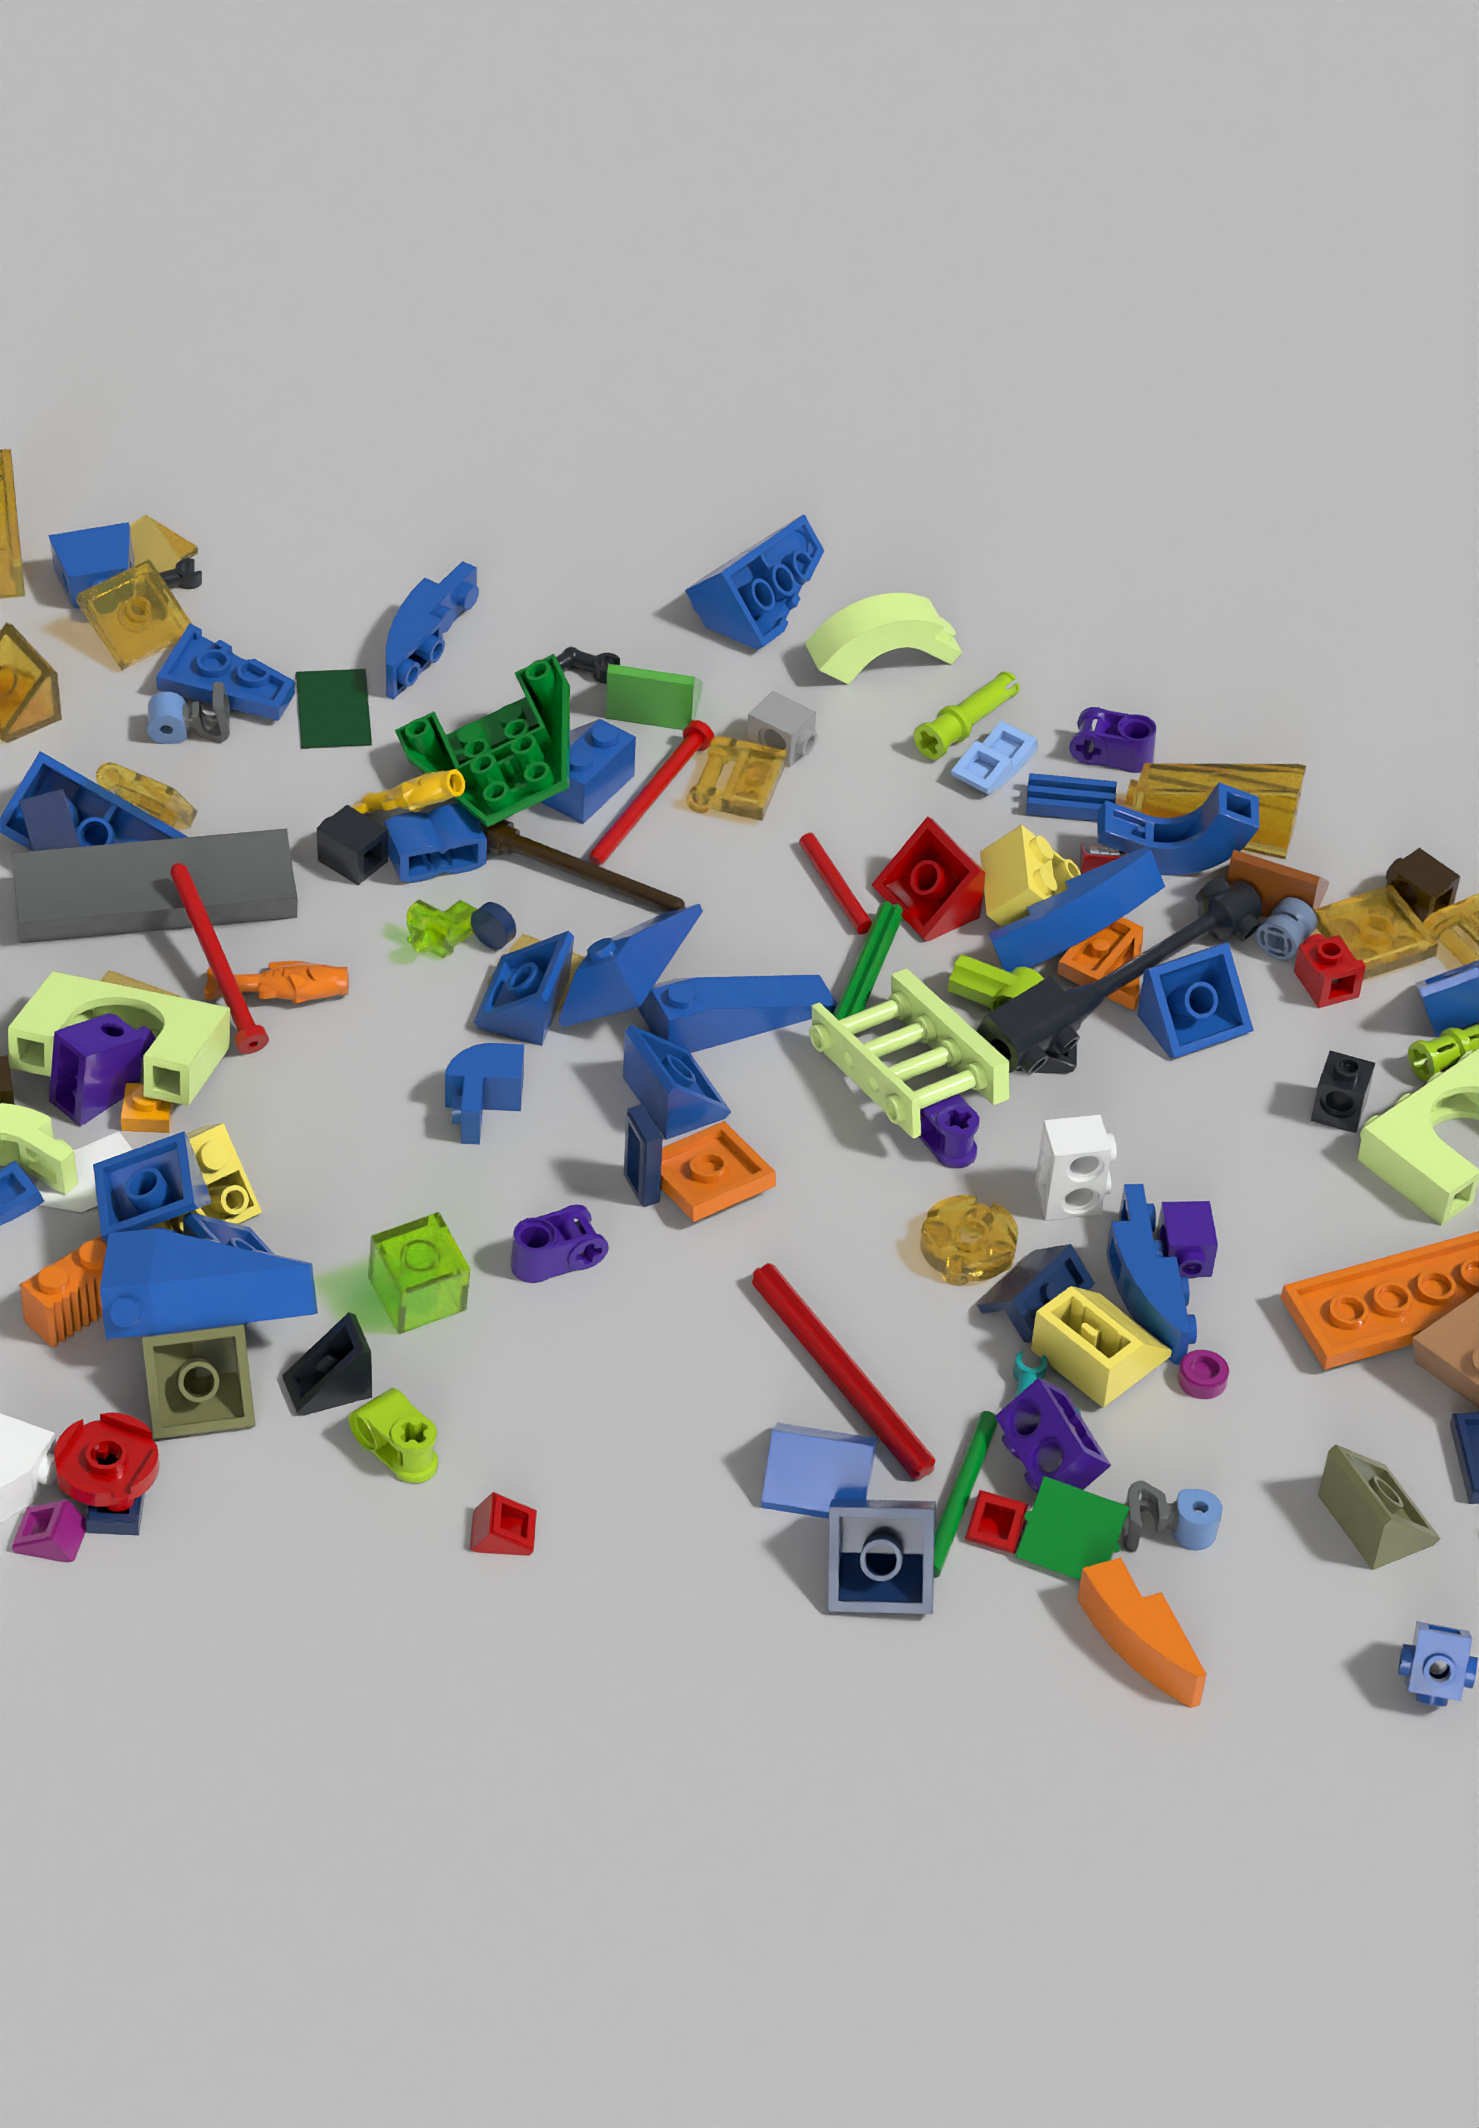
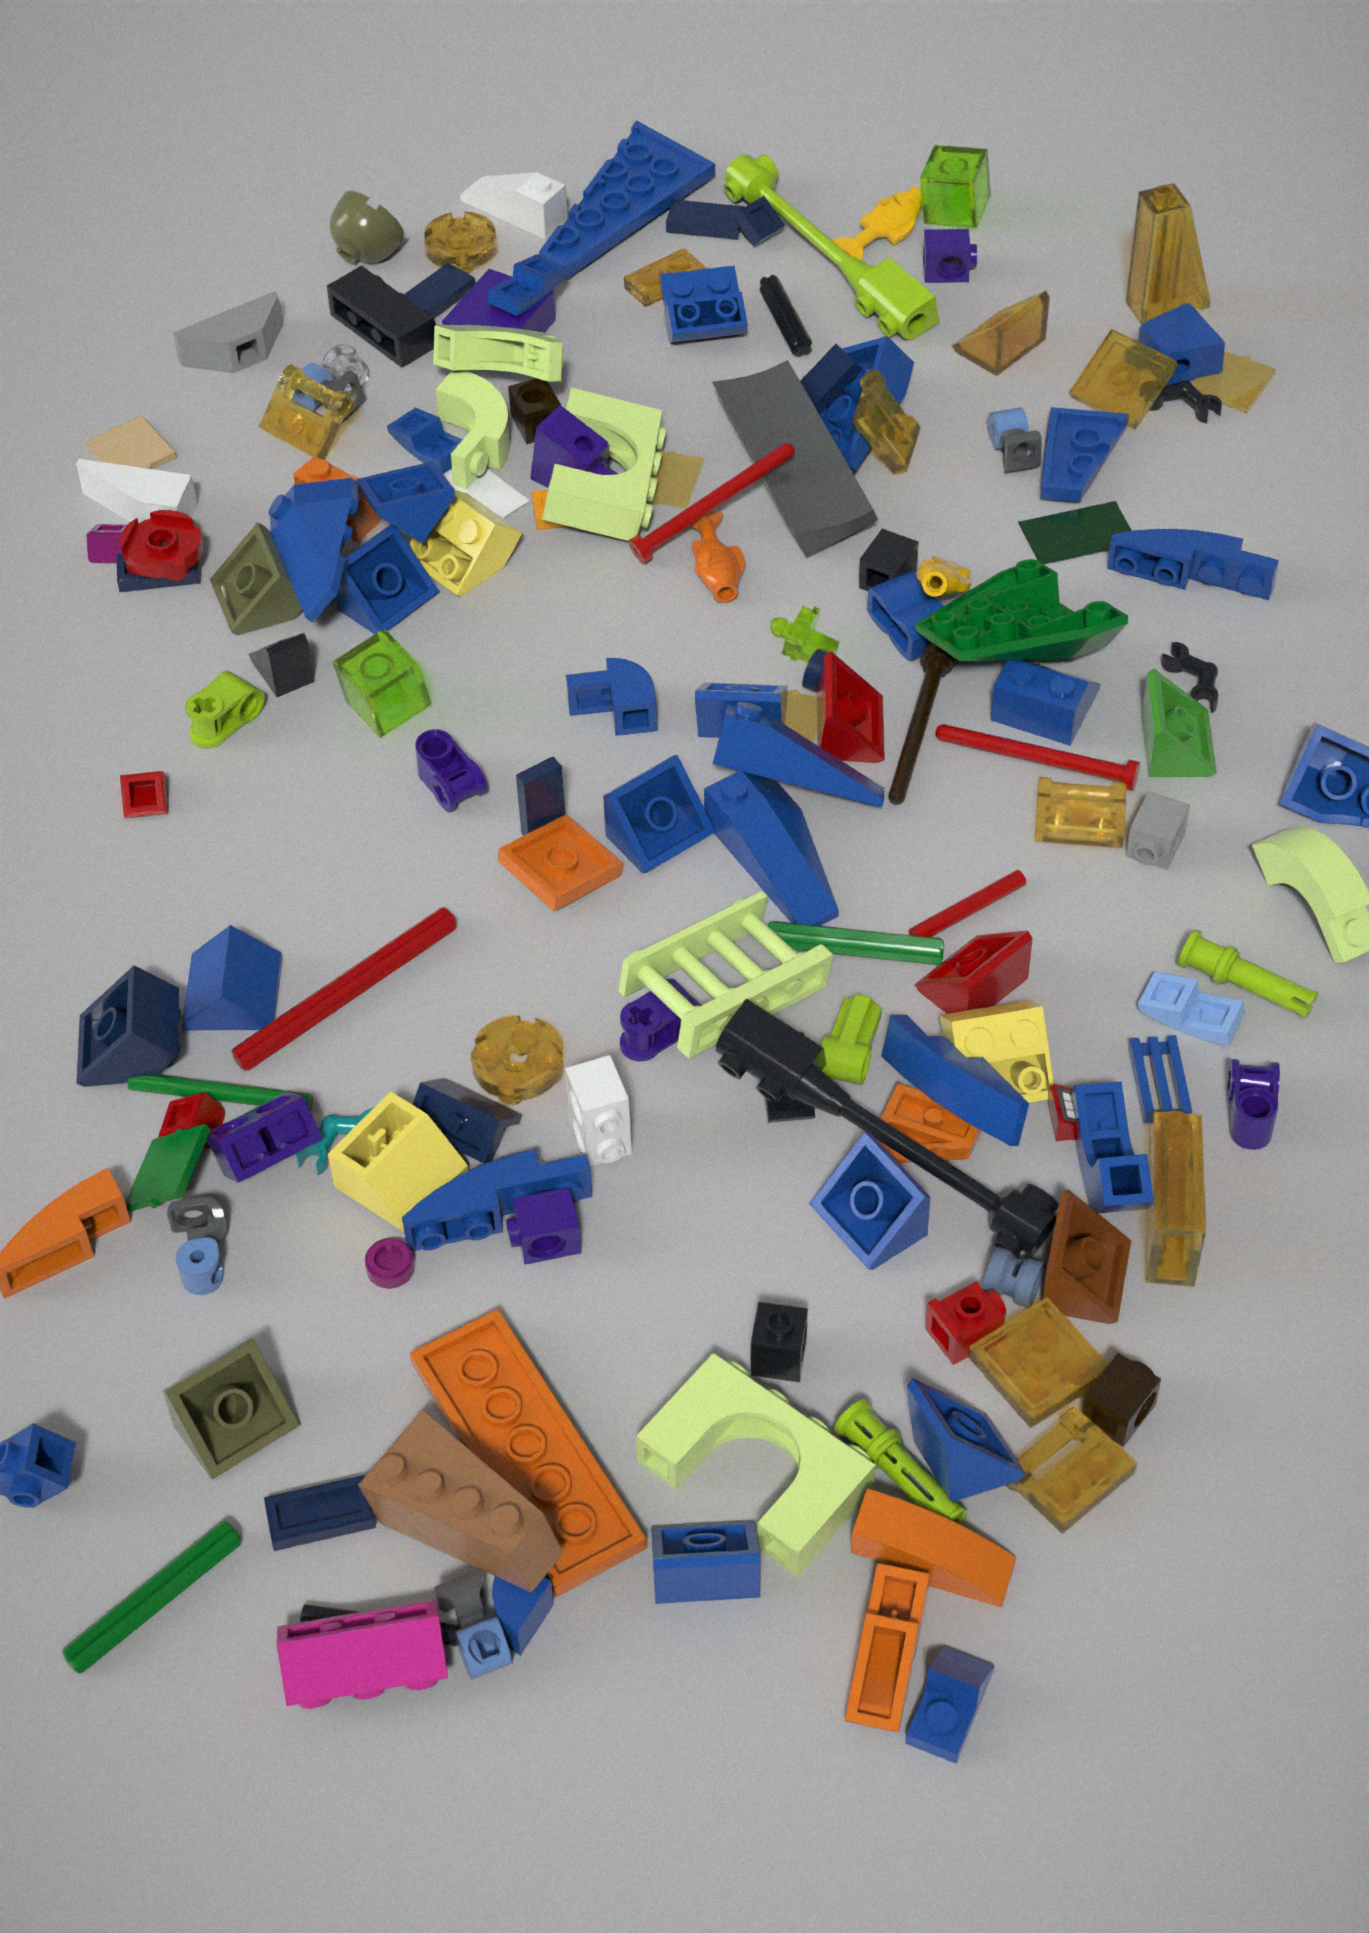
camera: 85 degrees right, 5 degrees up
(553, 910) = (849, 714): none -> red slope

